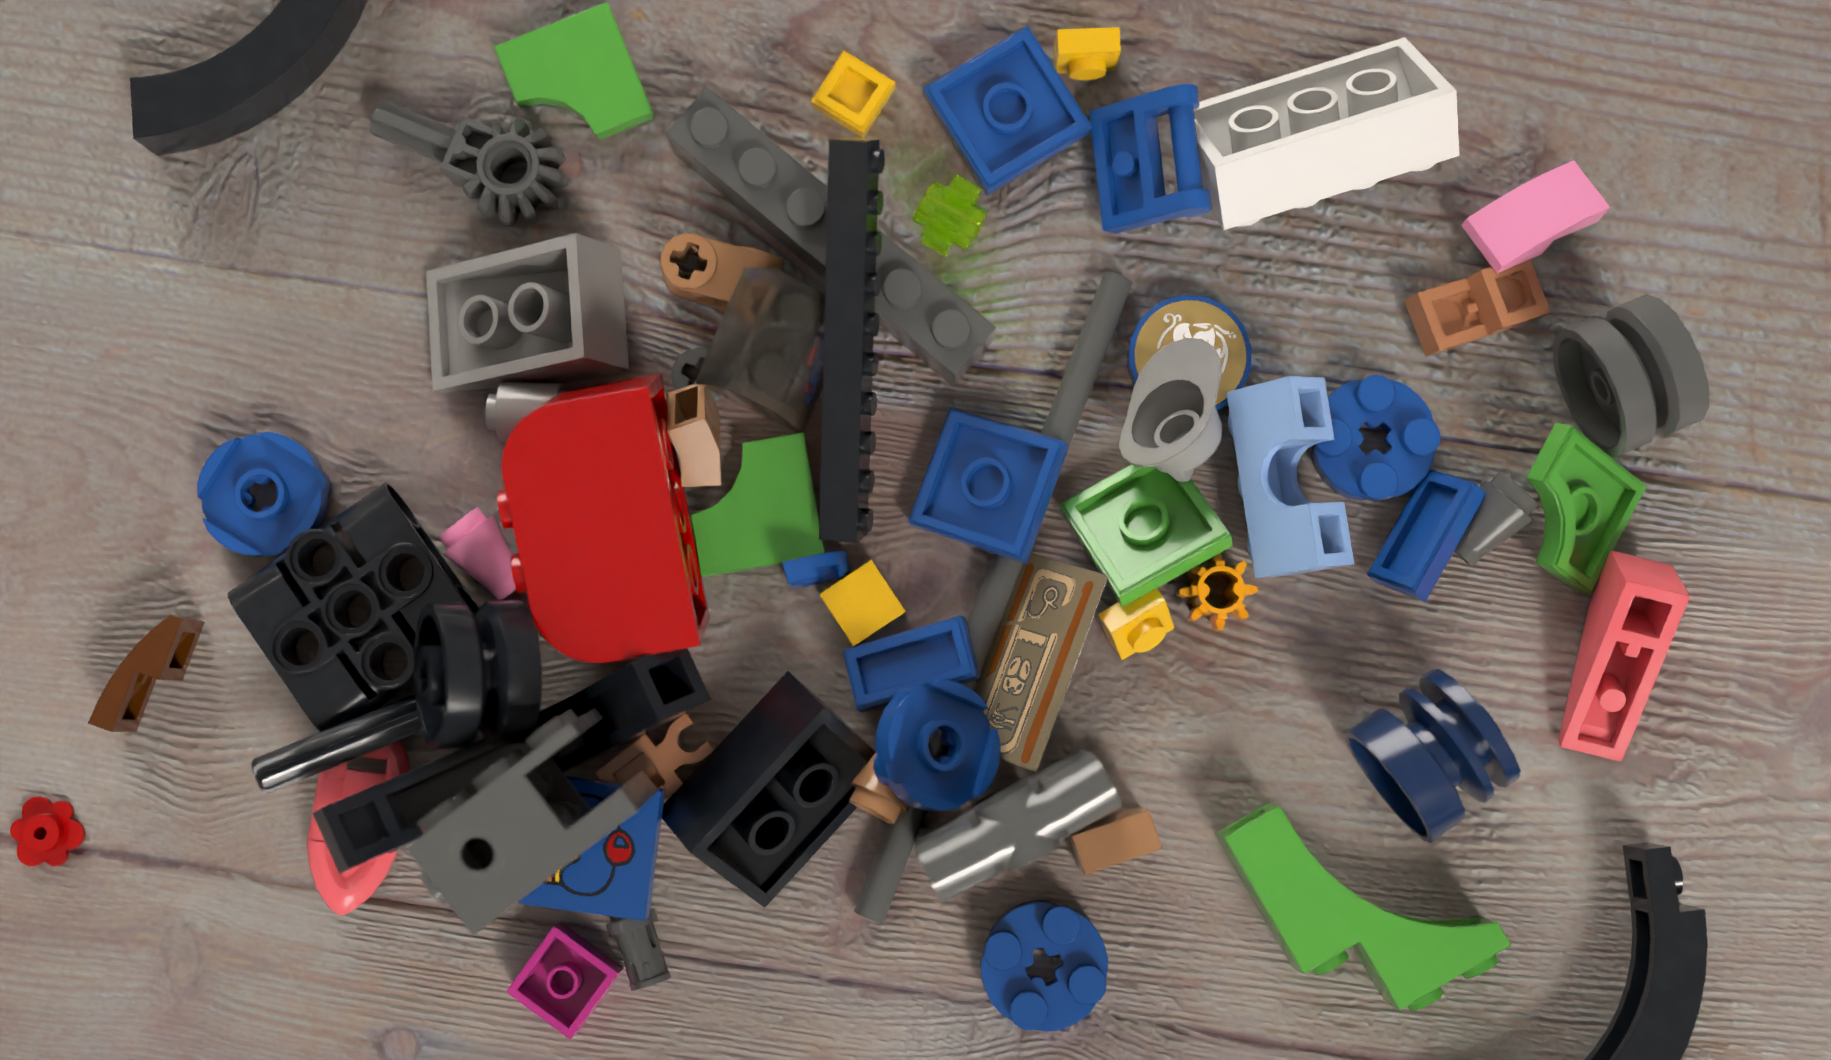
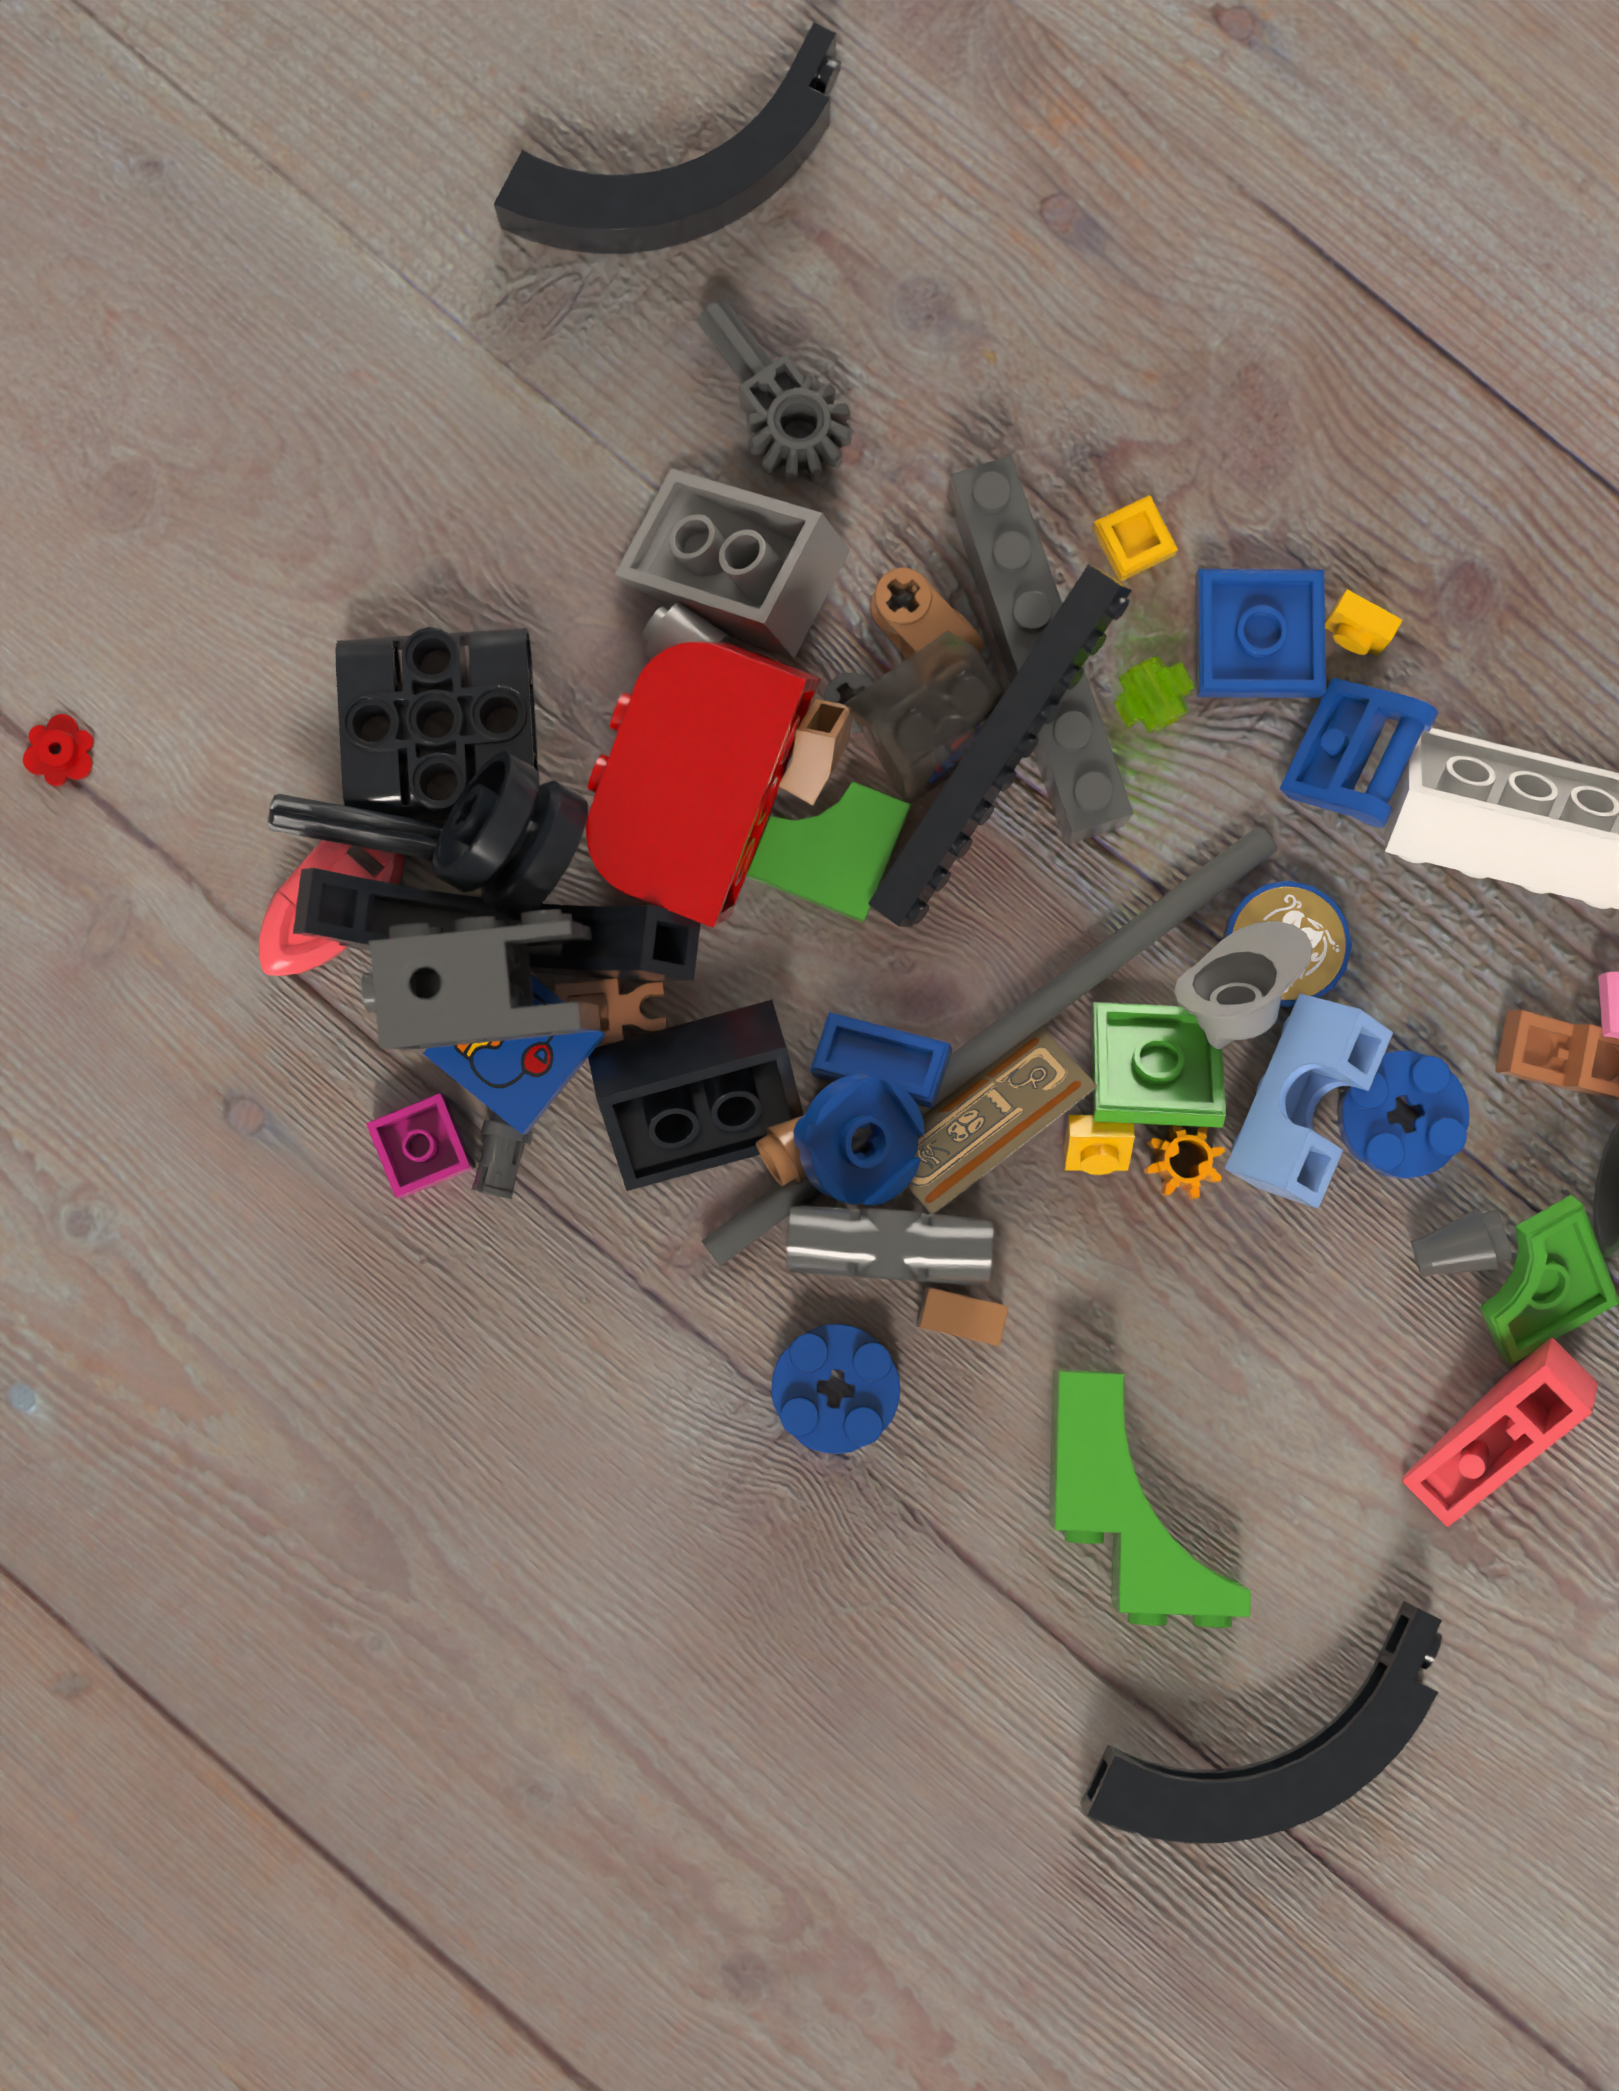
camera: 30 degrees right, 0 degrees up
(158, 655) = (248, 657): reddish brown slope -> none
(258, 458) = (429, 542): blue plate -> none
(481, 552) = (572, 738): bright pink cone -> none
(578, 67) = (911, 372): bright green tile -> none
(816, 569) = (849, 928): blue tile -> none
(862, 603) = (871, 983): yellow tile -> none
(988, 484) = (1043, 947): blue tile -> none
(1426, 534) = (1398, 1224): blue tile -> none
(1442, 747) = (1295, 1412): dark blue wheel -> none

